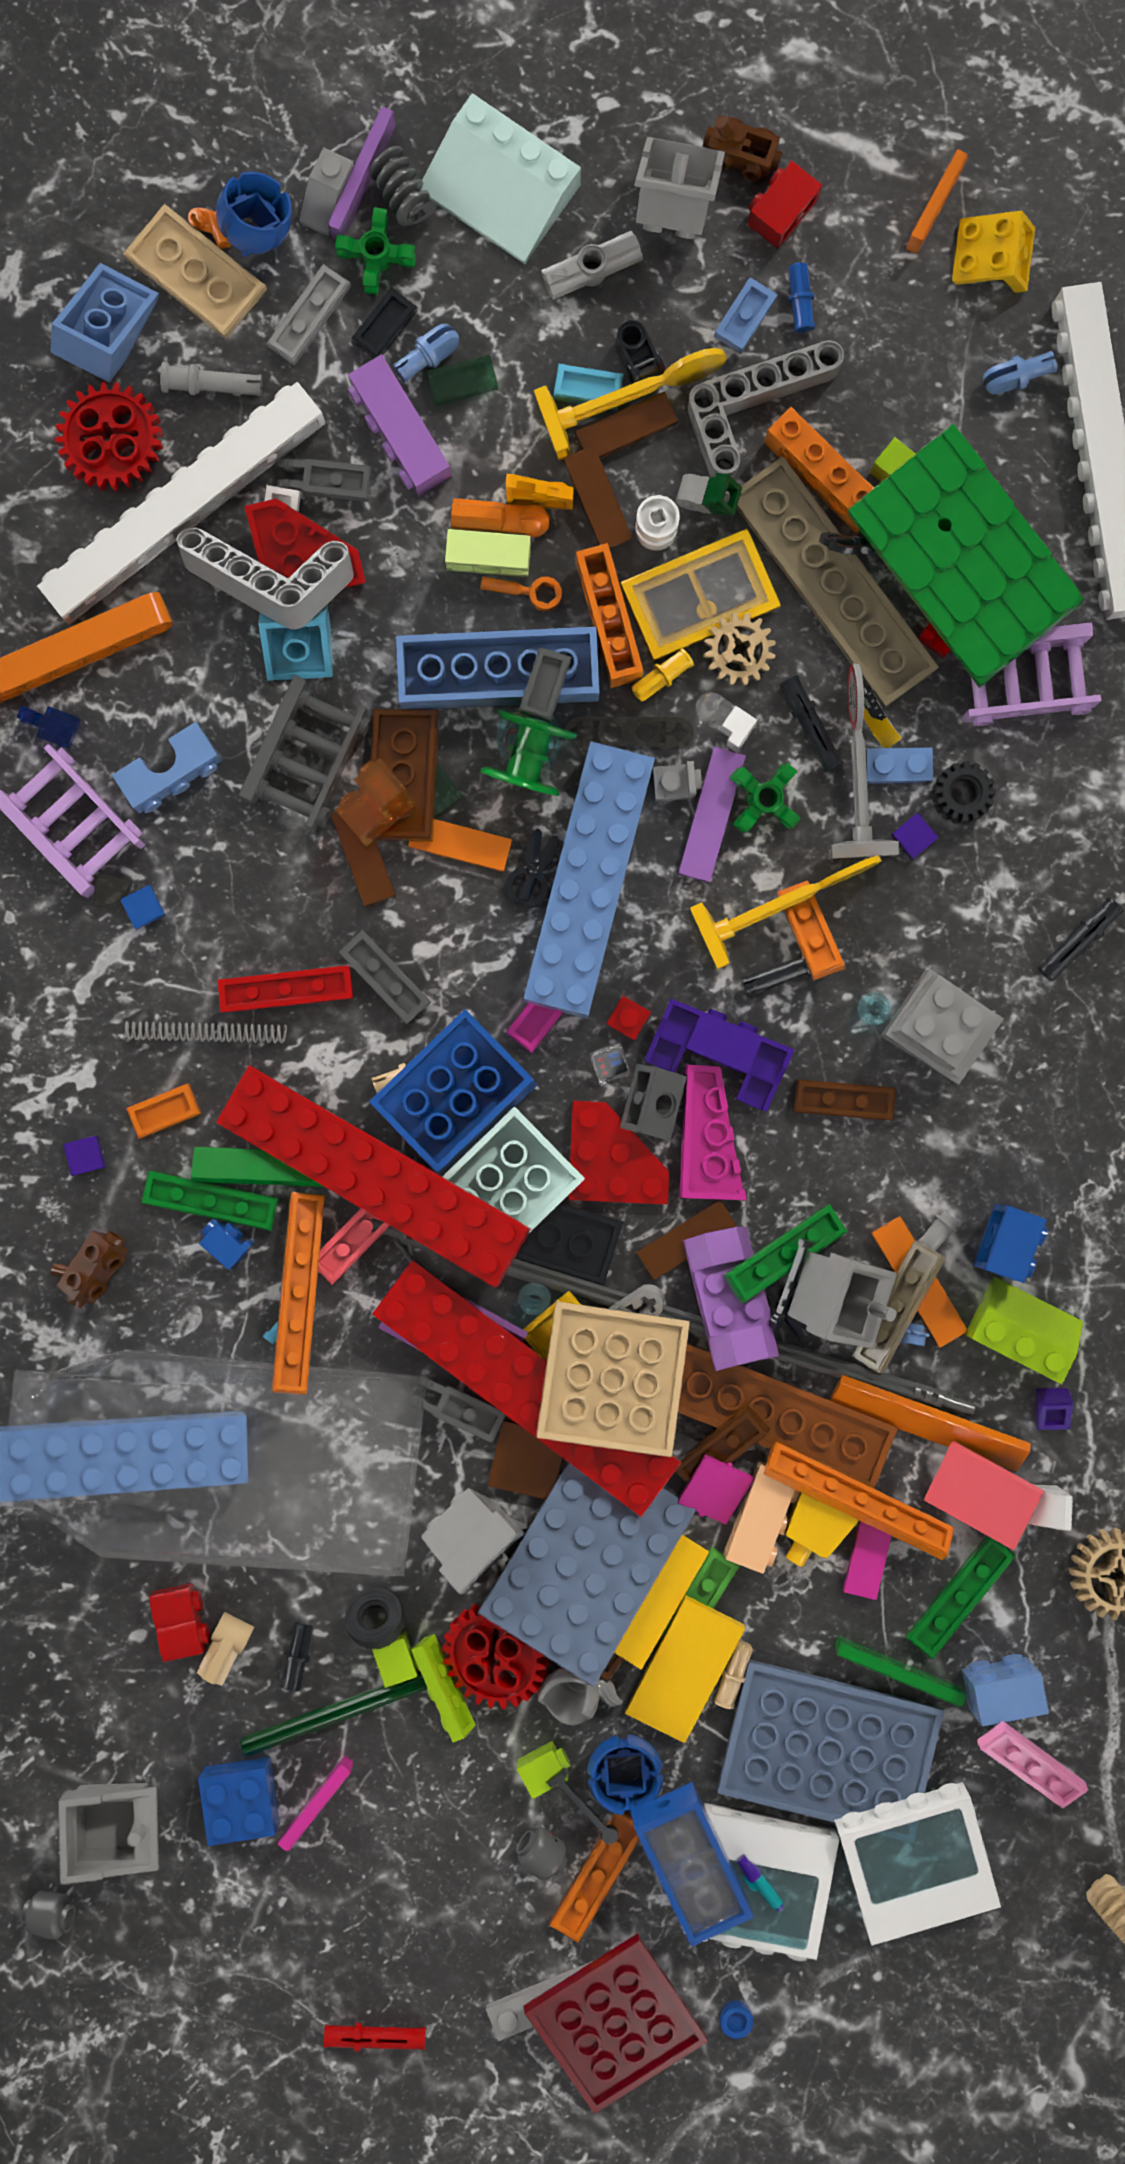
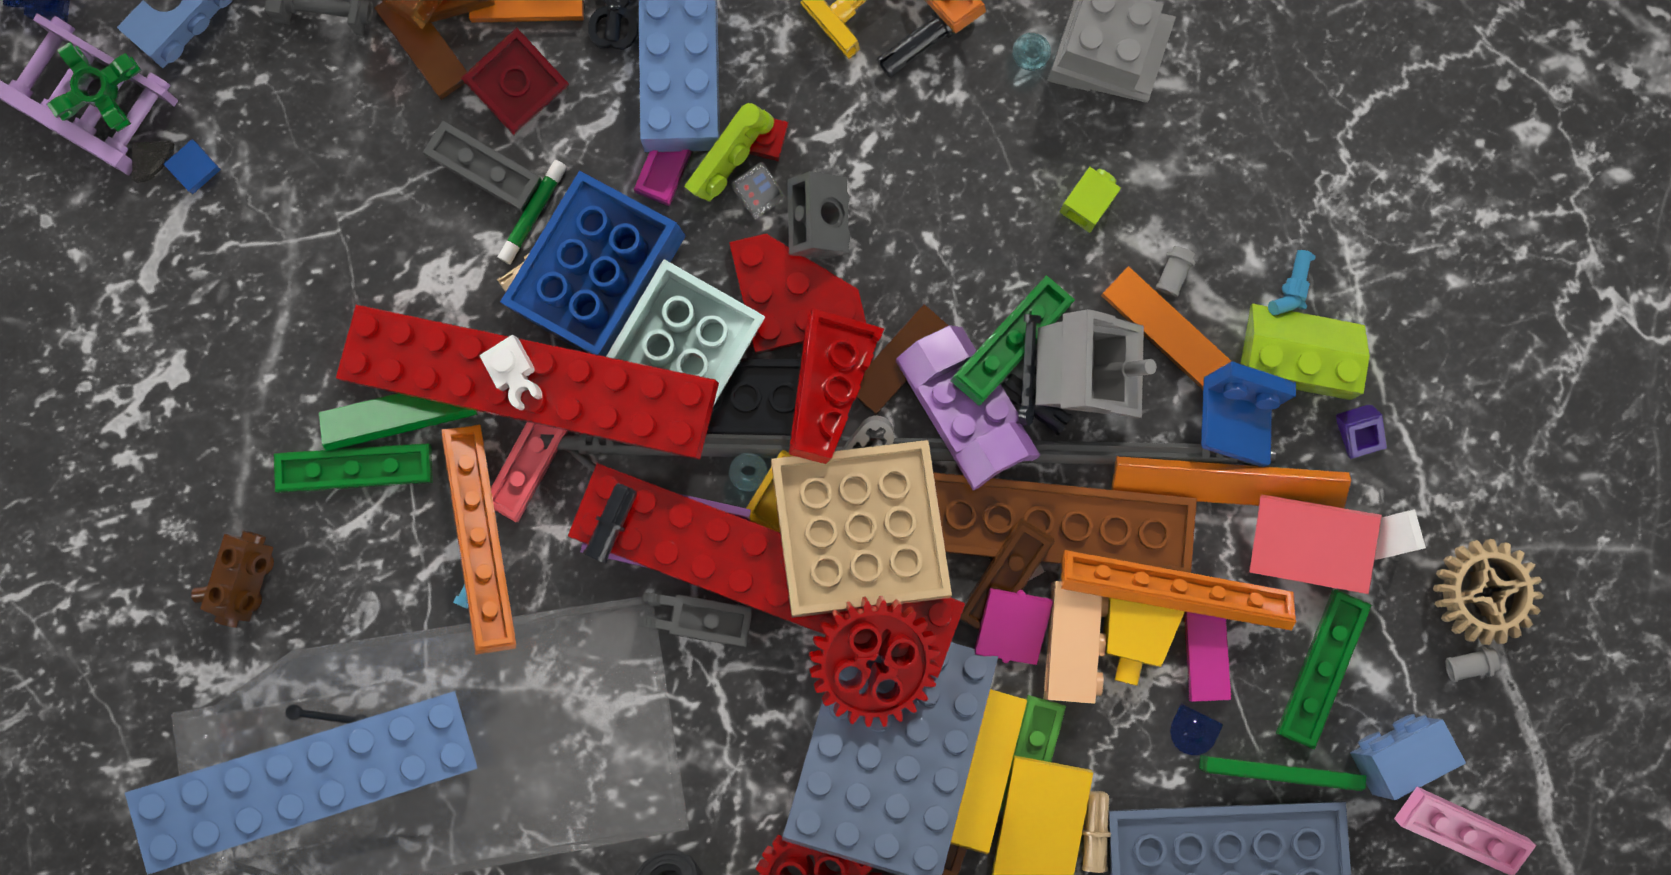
camera: 20 degrees left, 5 degrees down
(72, 800) = (69, 104): none -> green pin
(84, 1155) = (197, 458): dark purple tile -> none
(112, 1390) = (295, 712): none -> black hinge
(163, 1111) = (274, 383): orange tile -> none
(205, 1036) = (299, 286): light grey piece -> none
(225, 1243) = (382, 508): blue brick -> none
(285, 989) = (374, 210): red plate -> none
(362, 1163) = (509, 367): none -> white plate
(410, 1316) = (610, 523): none -> black axle
(416, 1026) = (532, 212): none -> green bar
(431, 911) = (515, 81): none -> dark red tile
(471, 1538) = (753, 757): light grey piece -> none
(523, 1463) = (782, 658): reddish brown tile -> none
(568, 1477) = (841, 651): none -> red gear
(595, 1027) = (729, 151): none -> lime plate
(626, 1239) = (829, 380): none -> red wing
(707, 1146) = (893, 253): dark pink wing -> none
(723, 1043) = (878, 132): dark purple bracket -> none
(838, 1615) = (1193, 731): none -> clear blue piece
(844, 1100) = (1028, 159): reddish brown tile -> none
(886, 1150) = (1090, 198): none -> lime brick
(907, 1294) = (1162, 342): dark tan tile -> none
(915, 1335) = (1181, 392): medium blue plate -> none
(955, 1370) = (1239, 411): none -> blue bracket
(1011, 1243) = (1258, 255): blue brick -> none
(1039, 1275) = (1296, 287): none -> dark azure piece
(1084, 1628) = (1473, 664): none -> light grey pin

